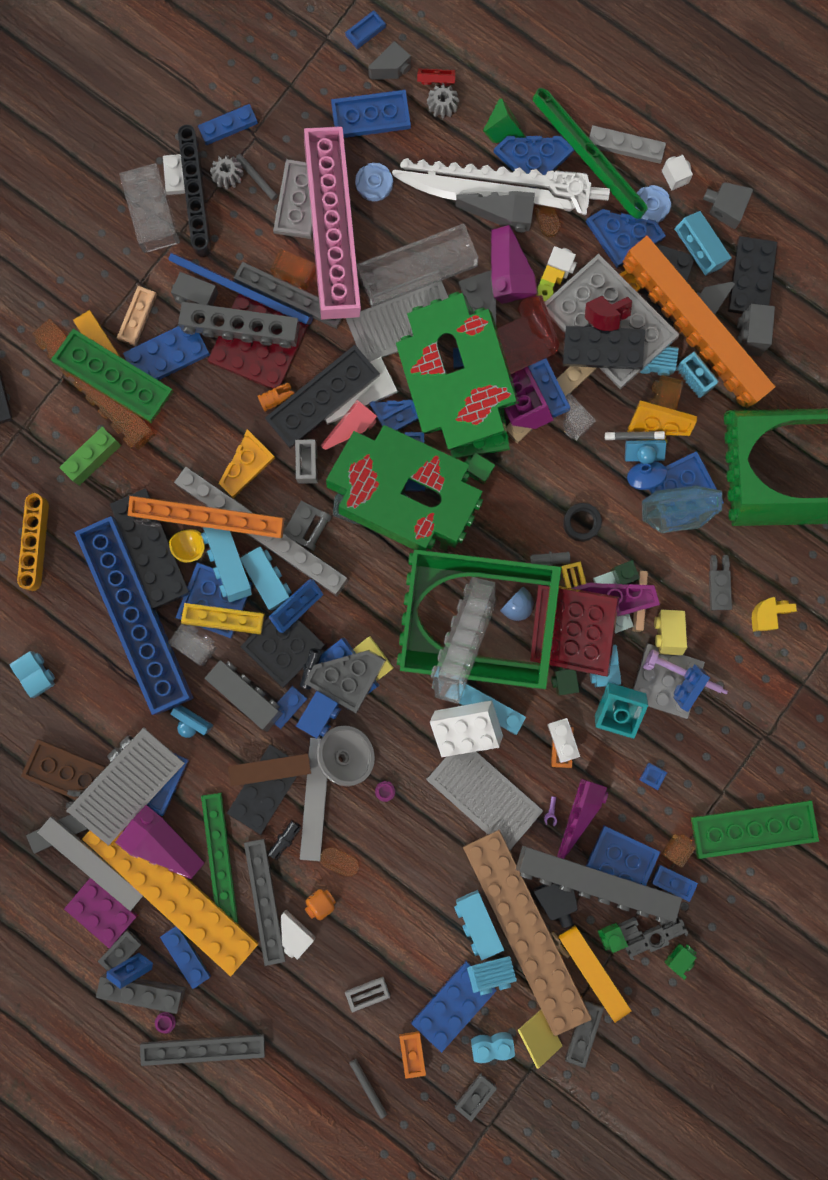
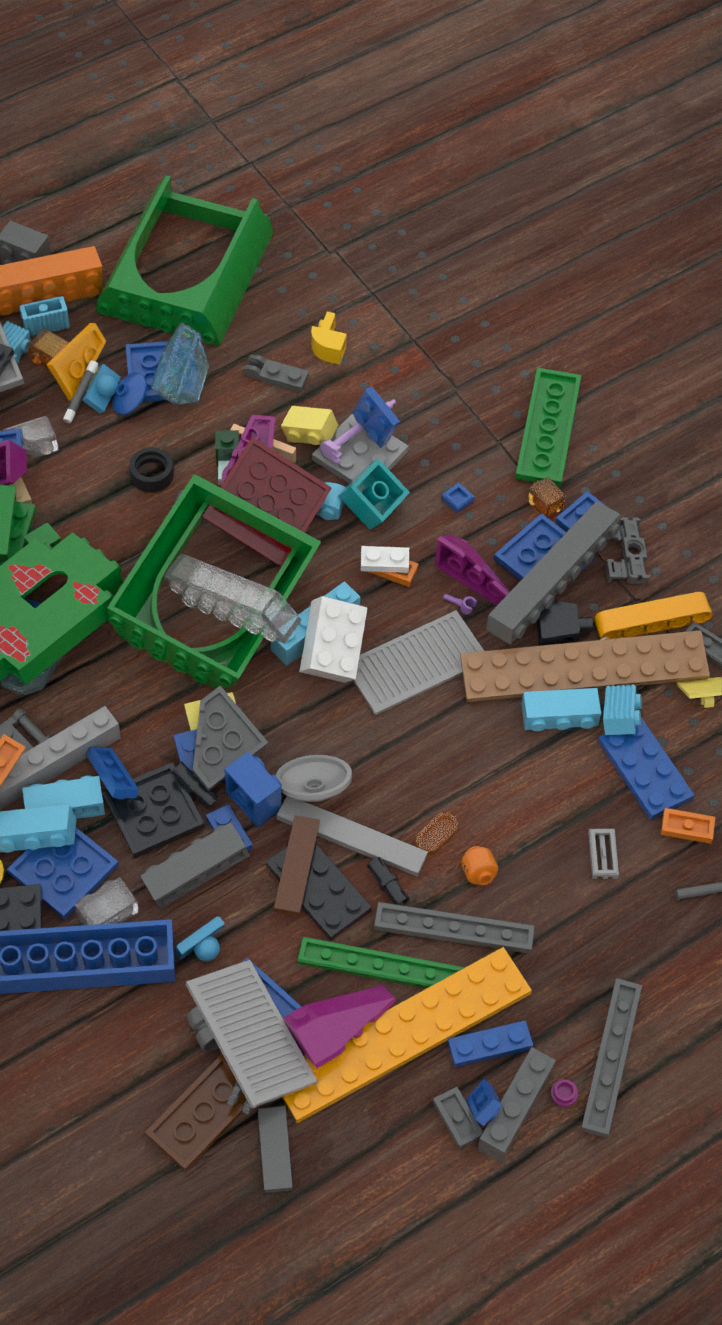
camera: 75 degrees left, 25 degrees down
(32, 674) = (57, 1112): medium azure brick -> none
(89, 862) = (330, 1117): light grey tile -> none
(100, 913) = (398, 1129): magenta plate -> none
(222, 618) = (90, 857): yellow tile -> none
(295, 936) = (506, 904): white slope -> none
(385, 791) = (372, 758): magenta plate -> none
(498, 1046) = (703, 739): medium azure brick -> none
(519, 606) = (217, 554): medium blue helmet -> none
(565, 681) = (327, 535): dark green brick -> none
(612, 938) = (619, 586): green brick -> none
(681, 960) = (665, 533): green brick -> none

